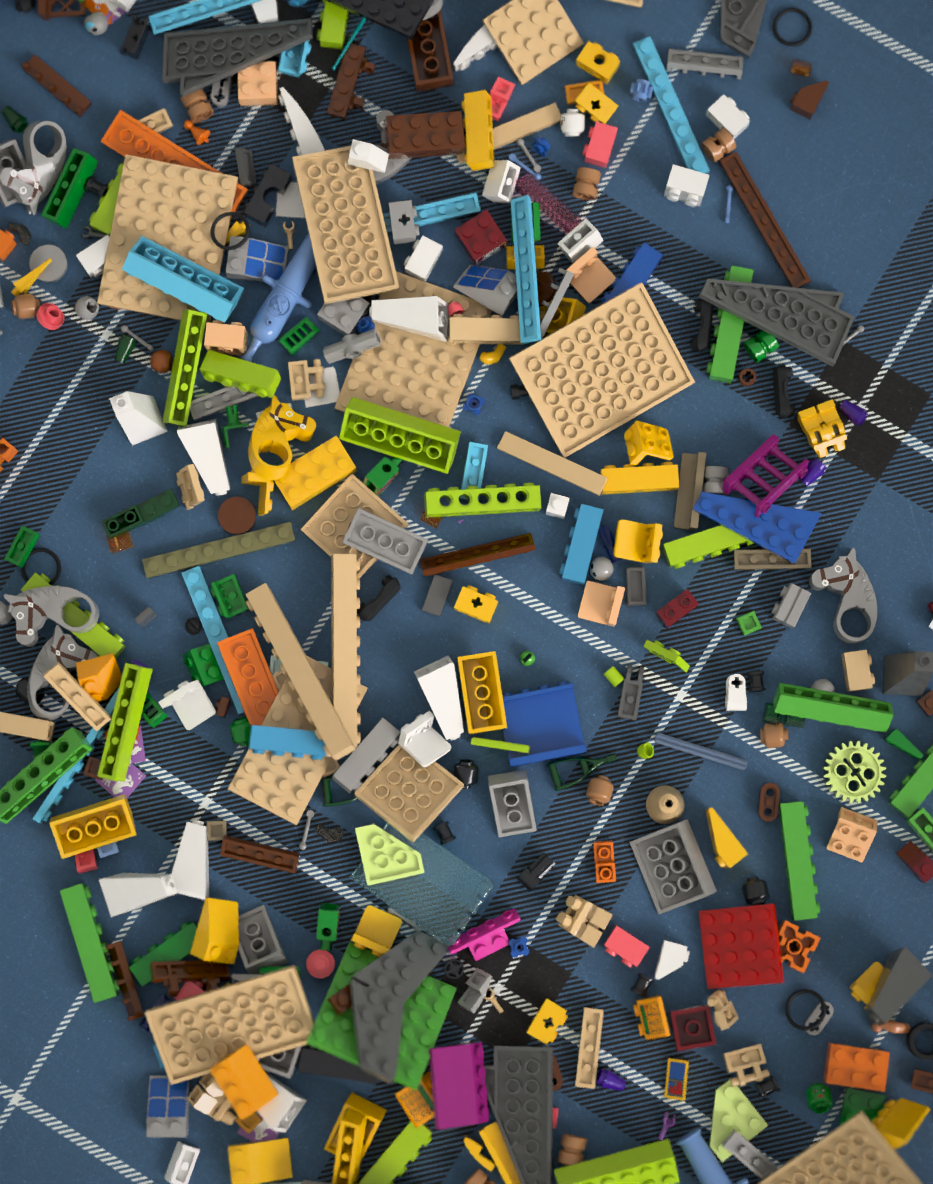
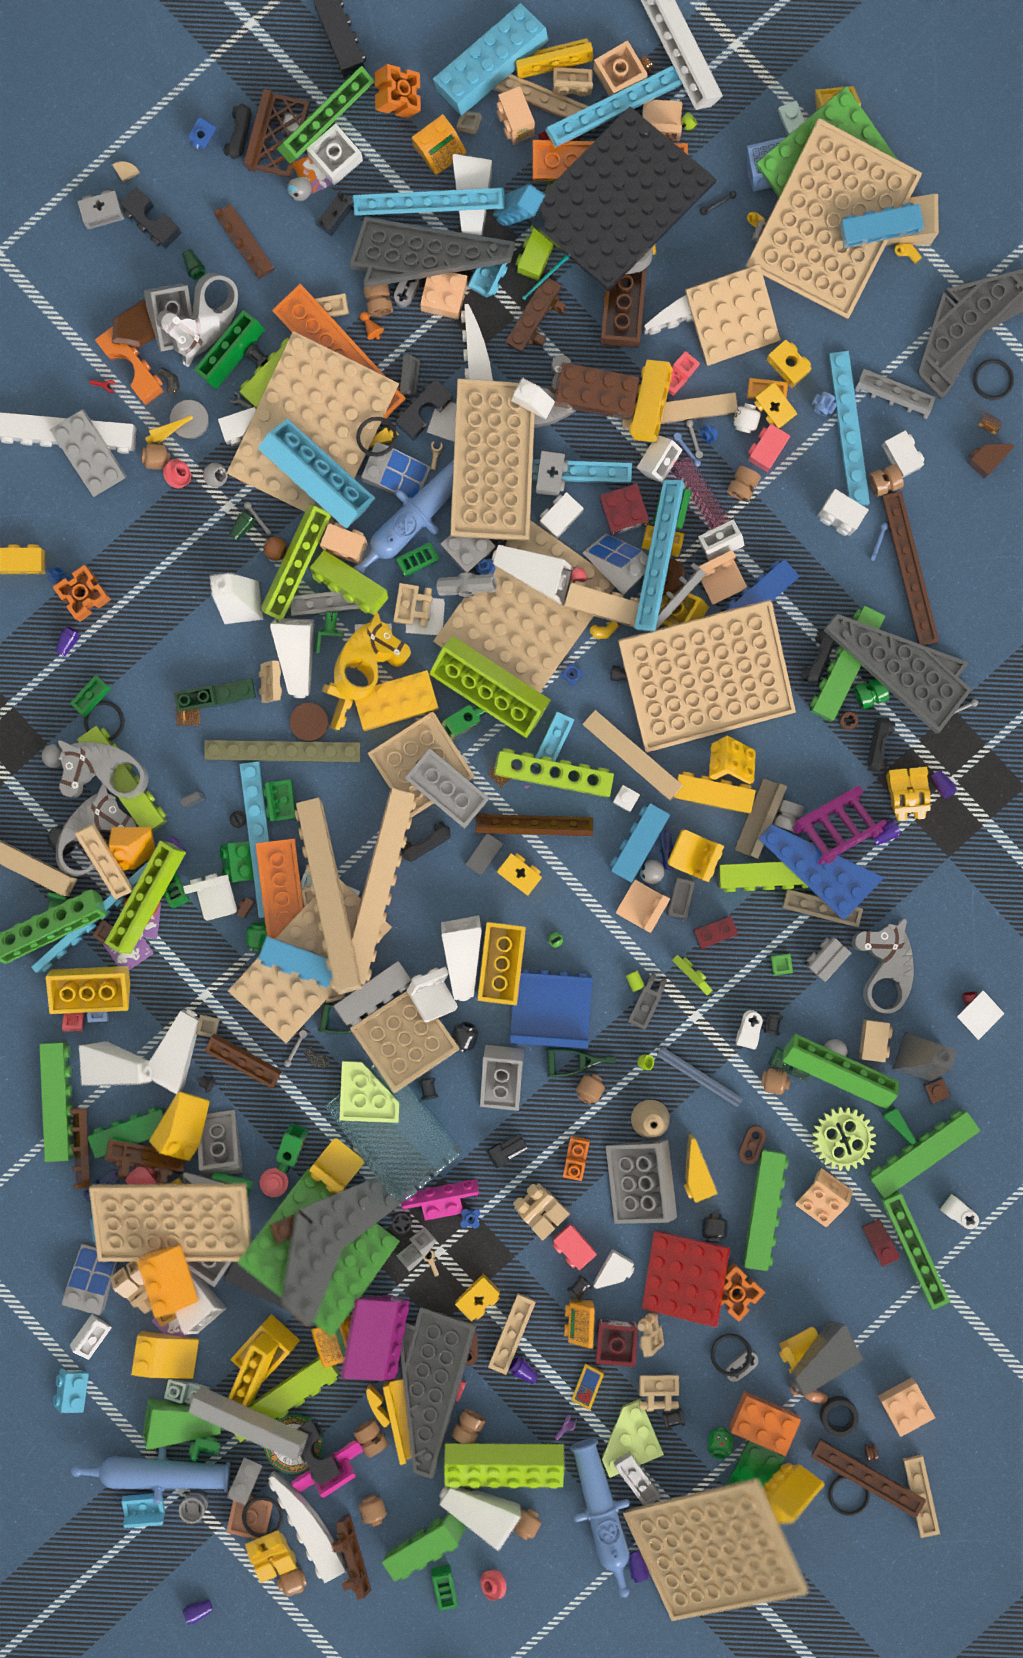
camera: 15 degrees right, 5 degrees up
(230, 886) = (207, 1083): none -> black piece
(500, 745) = (506, 1018): lime tile -> none

